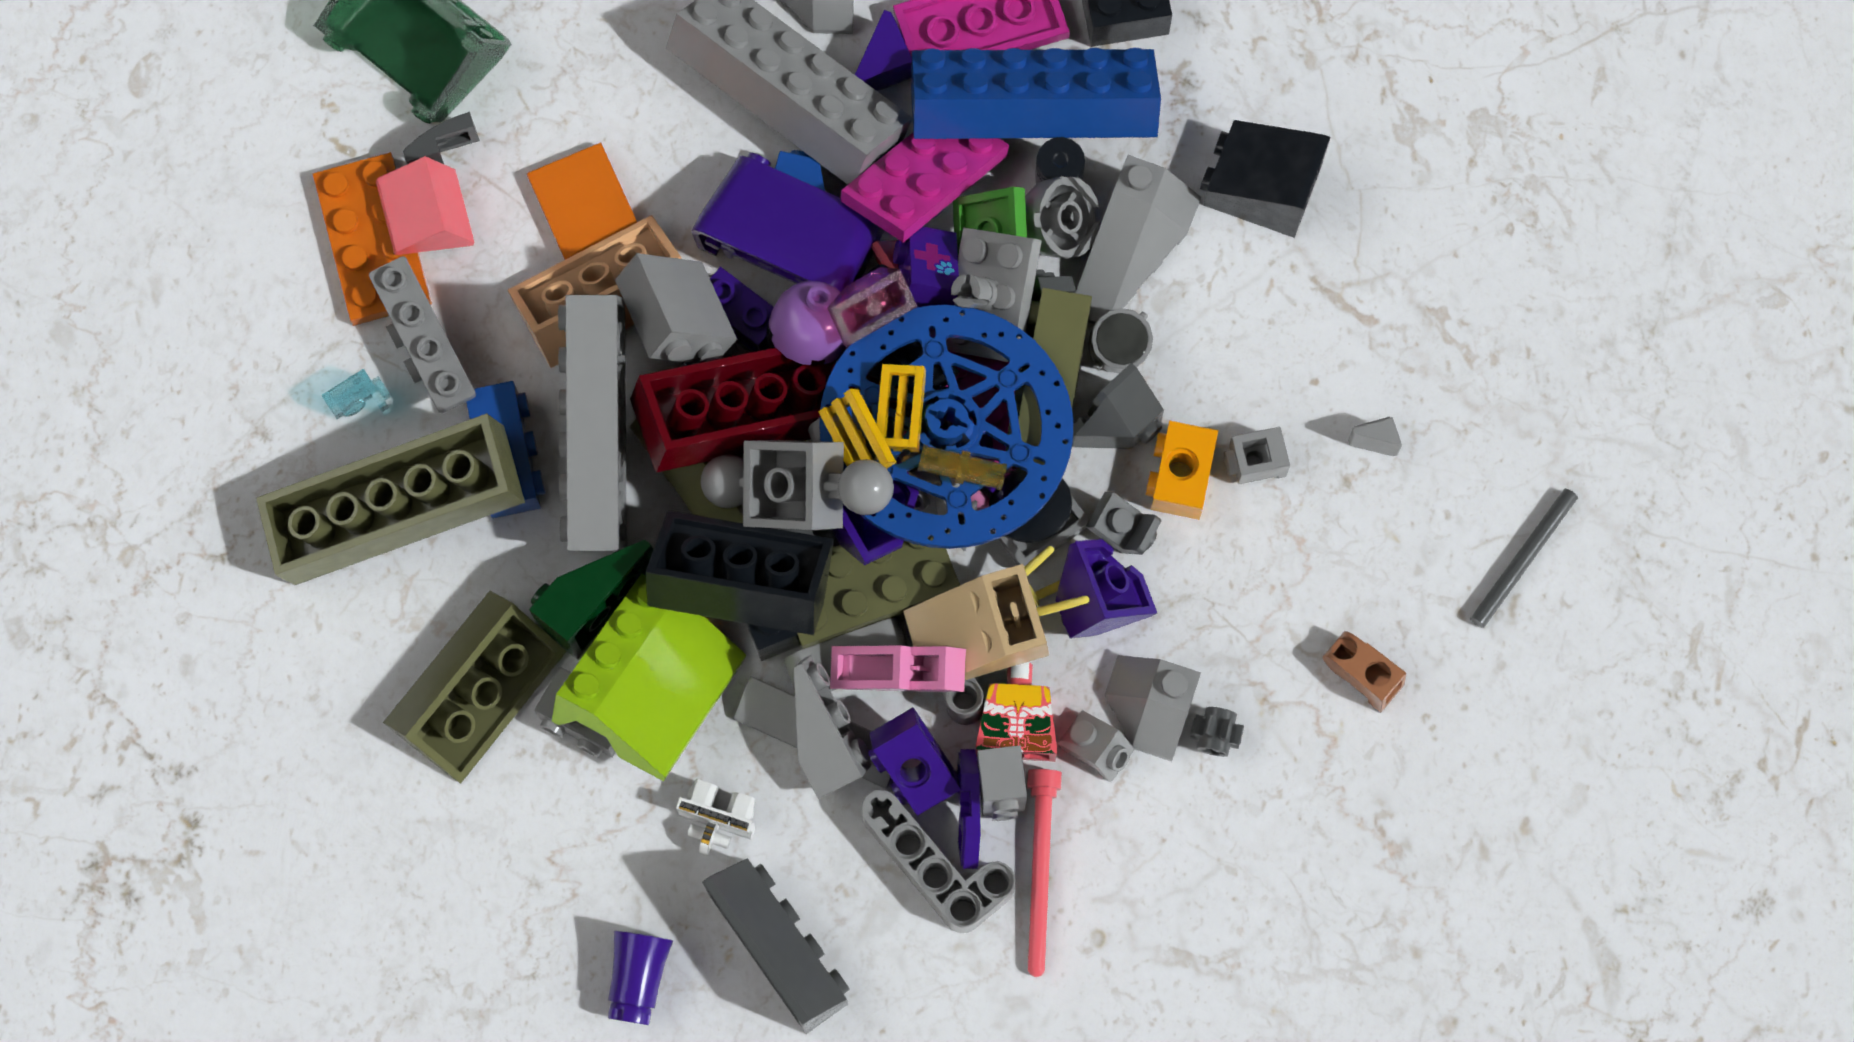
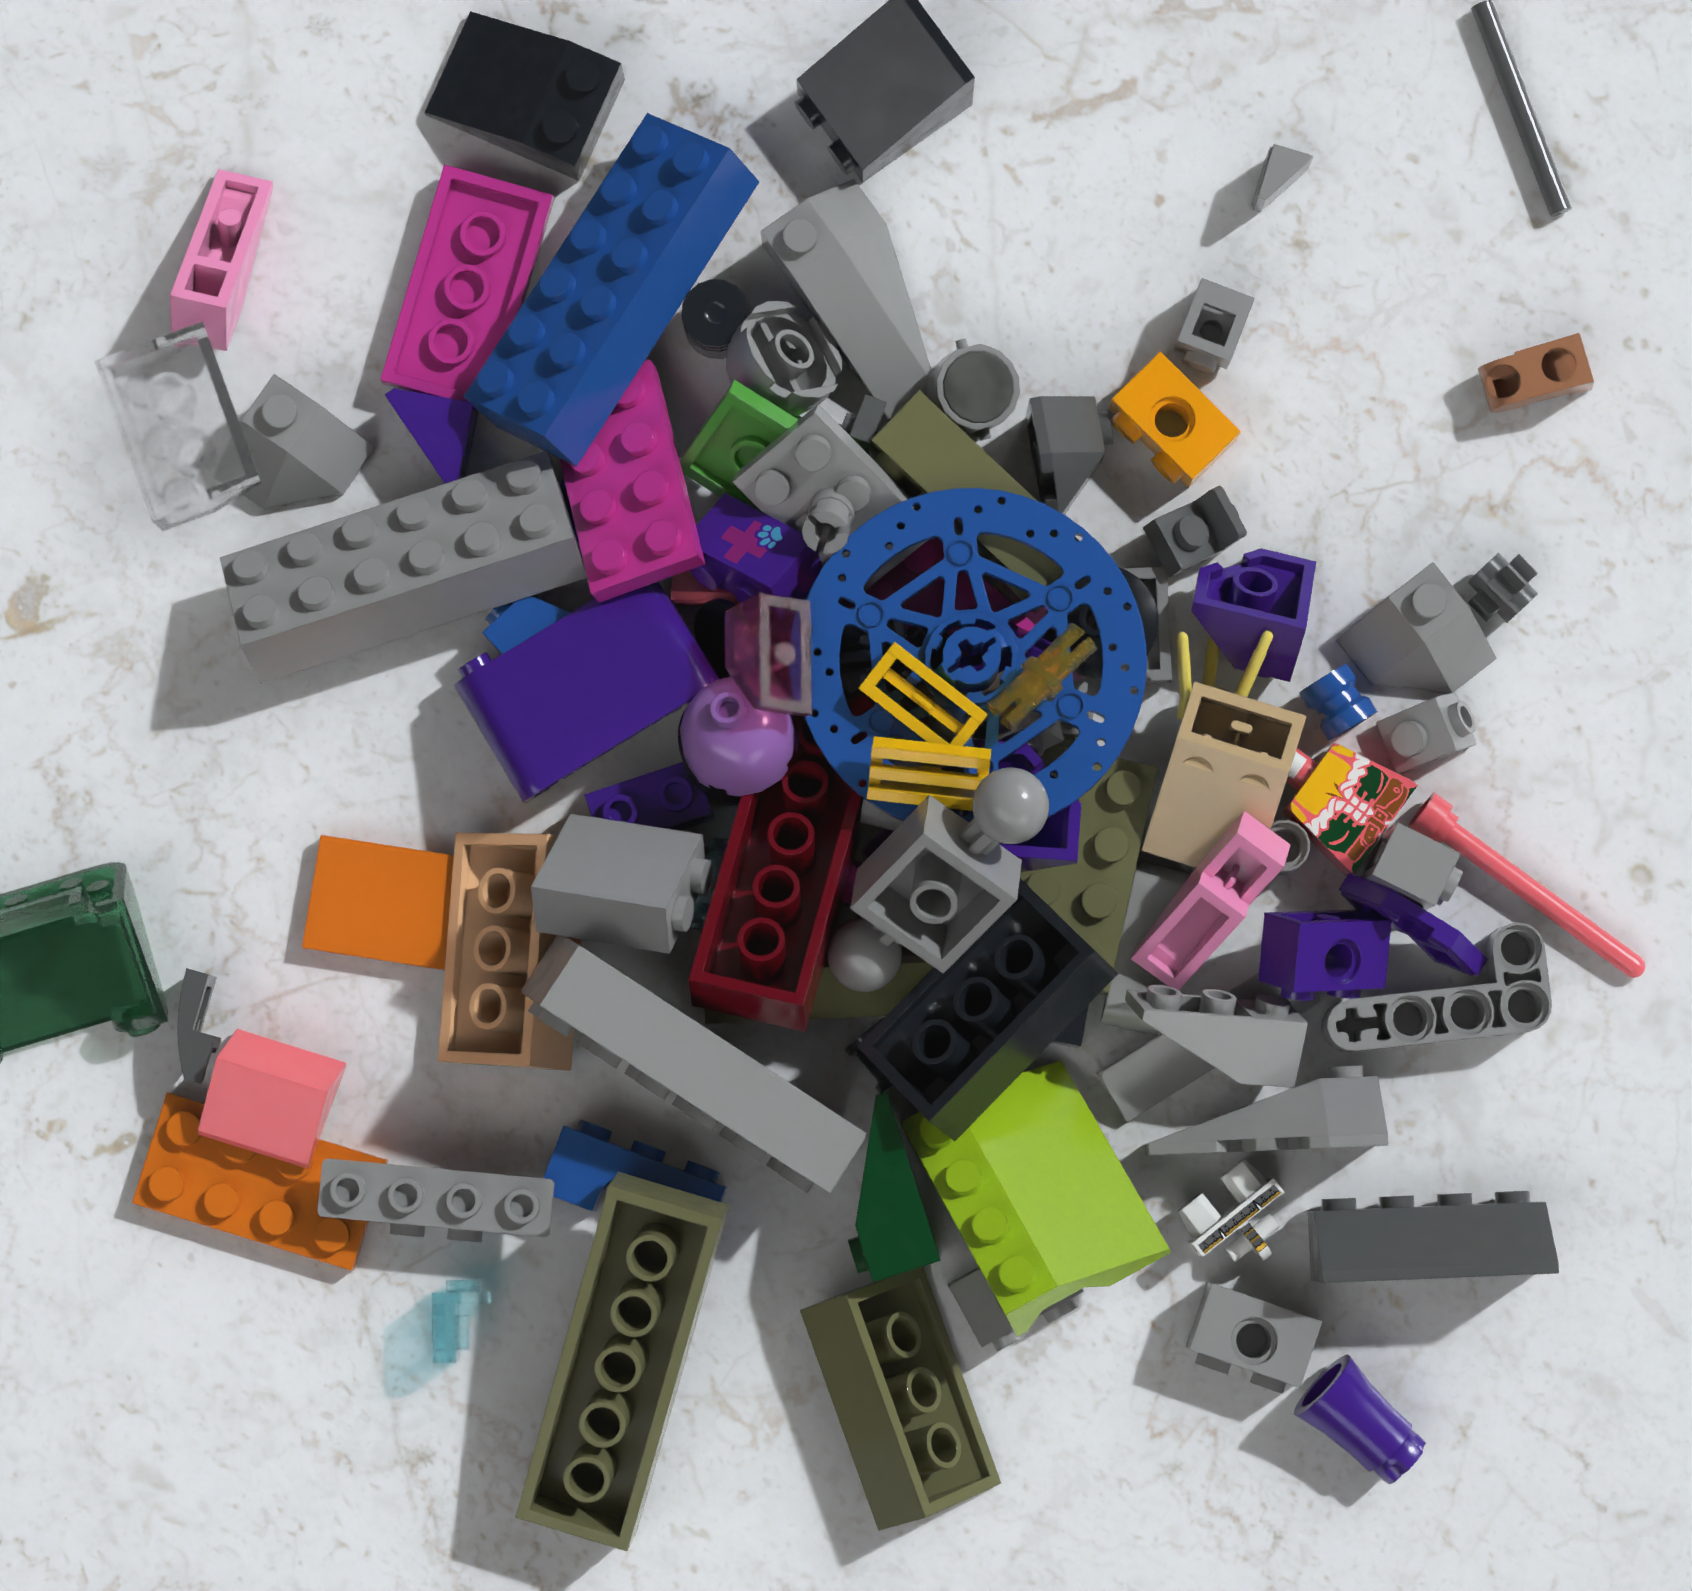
camera: 55 degrees left, 10 degrees up
(663, 896) = (1288, 1333): none -> light grey brick
(808, 822) = (1314, 1115): none -> light grey wedge
(1078, 677) = (1339, 701): none -> blue wheel

